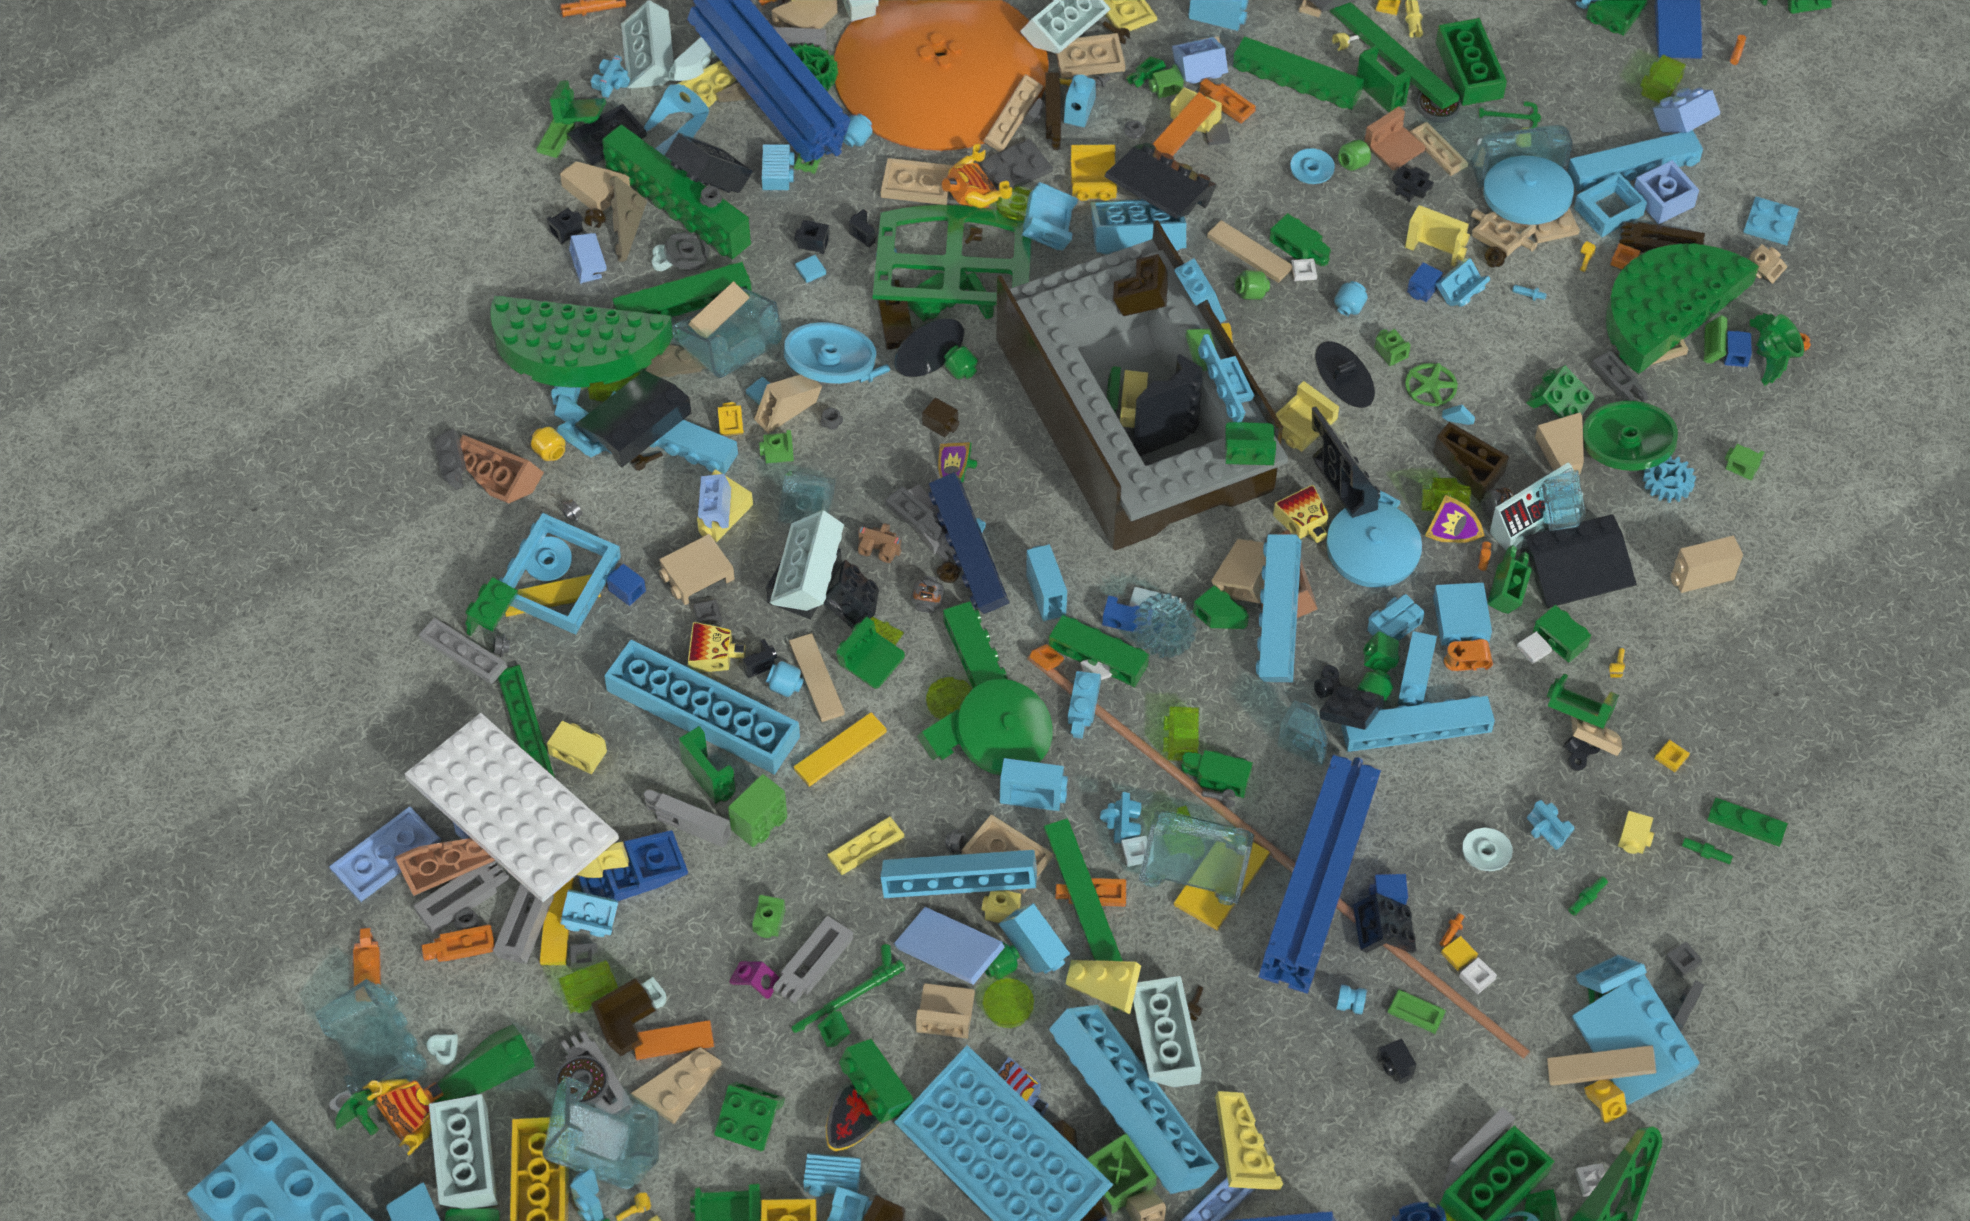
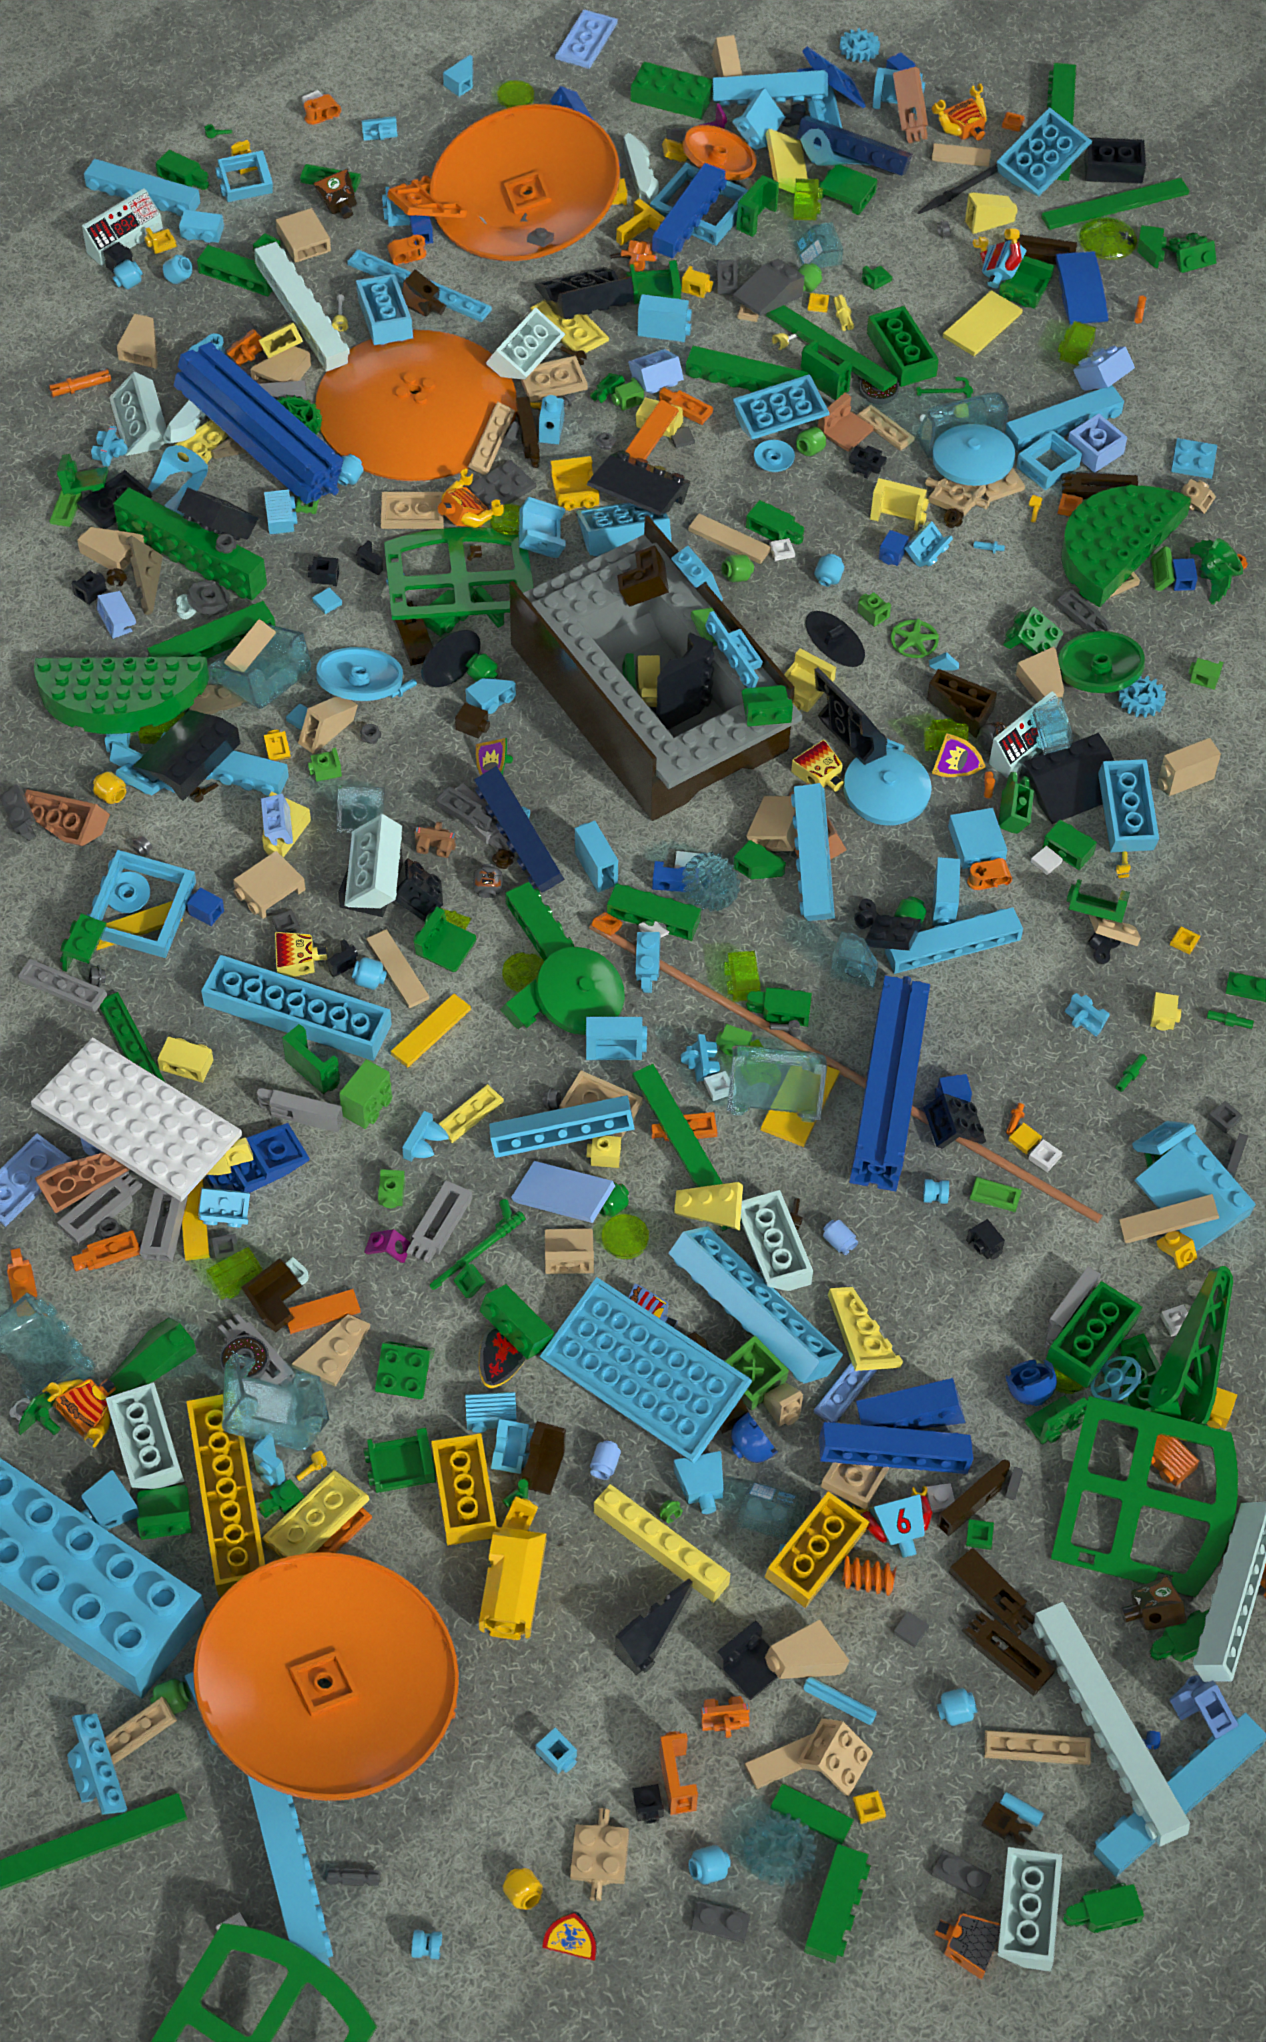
camera: 10 degrees left, 0 degrees up
(443, 1047) = (107, 1347): light aqua tile -> none
(814, 857) = (424, 1129): none -> medium azure tile
(964, 391) = (490, 693): none -> medium azure slope
(1034, 939) = (641, 1175): medium azure brick -> none
(1160, 799) = (732, 1036): none -> bright green brick
(1239, 1035) = (840, 1236): none -> light blue brick
(1325, 114) = (779, 407): none -> medium azure slope
(1381, 652) = (911, 881): green brick -> none
(1397, 618) = (918, 851): medium azure brick -> none
(1491, 841) = (1037, 1036): light aqua dish -> none
(1563, 45) = (982, 323): none -> light yellow tile
(1633, 599) = (1128, 805): none -> medium azure brick

